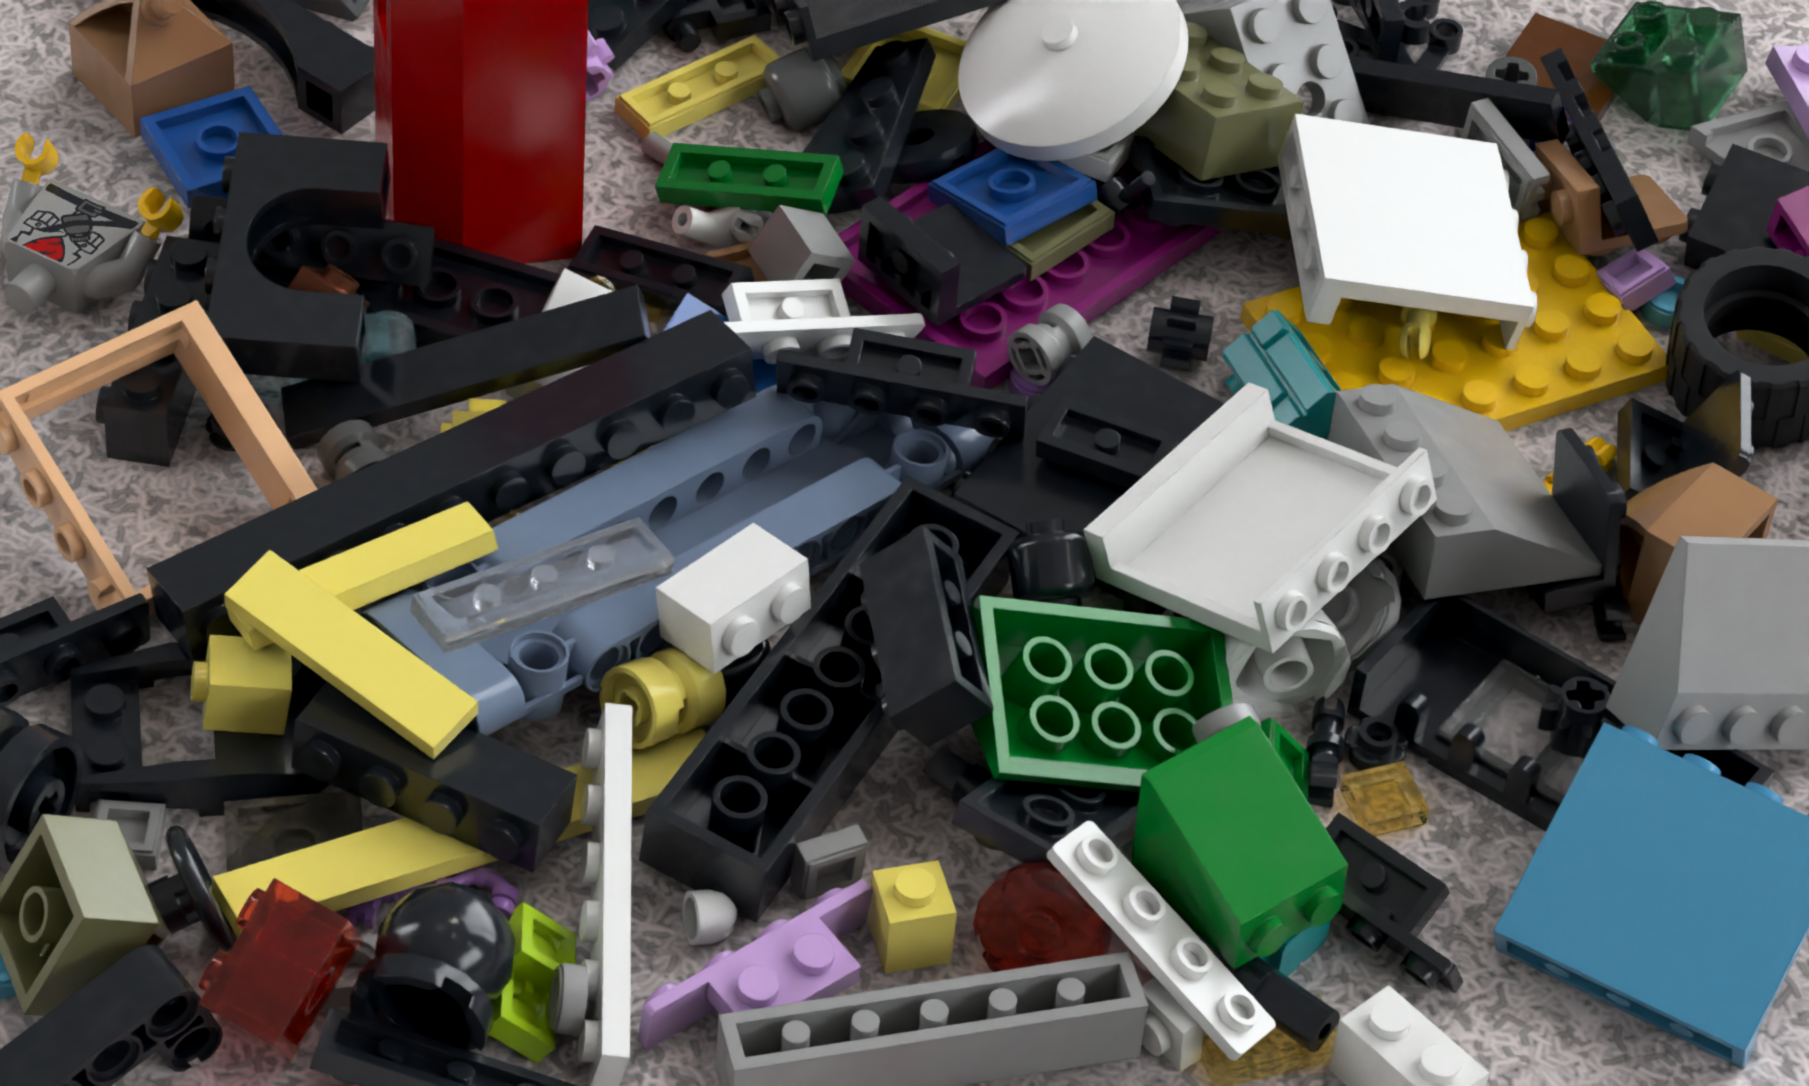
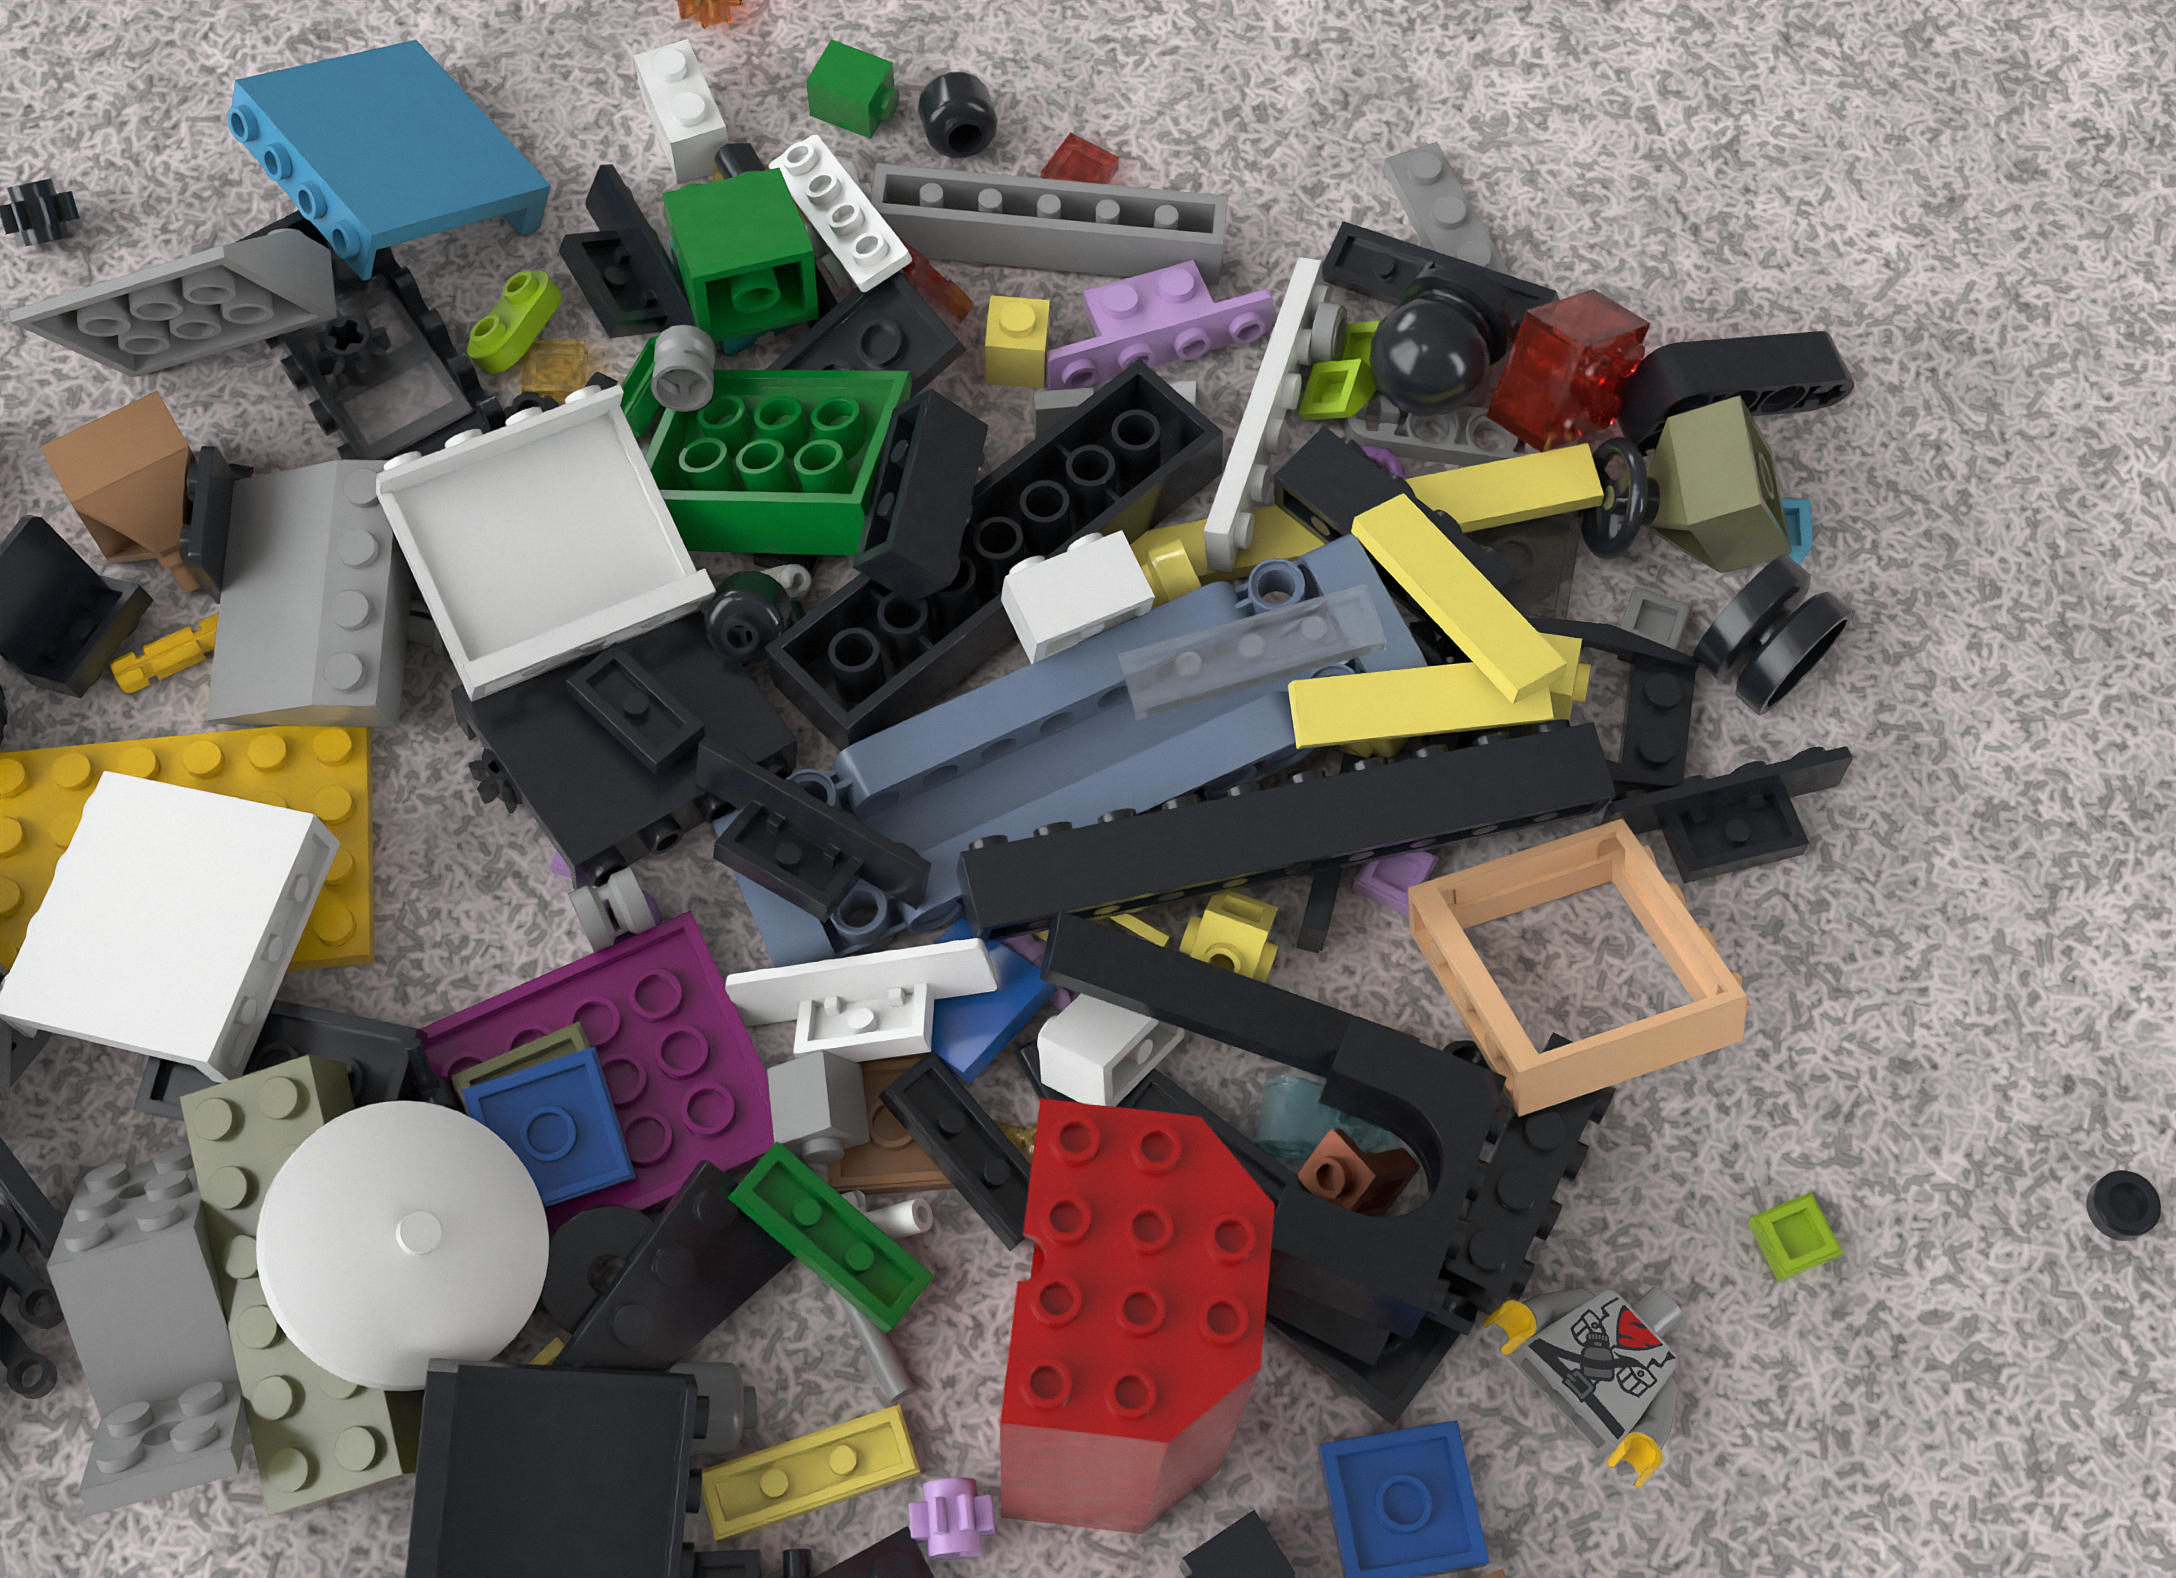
camera: 160 degrees left, 20 degrees up
(350, 448) = (1358, 972): dark grey wheel -> none
(937, 261) = (672, 1052): black bracket -> none
(1180, 333) = (462, 914): black gear -> none
(1284, 363) = (393, 808): teal brick -> none
(1451, 820) = (514, 321): none -> lime plate

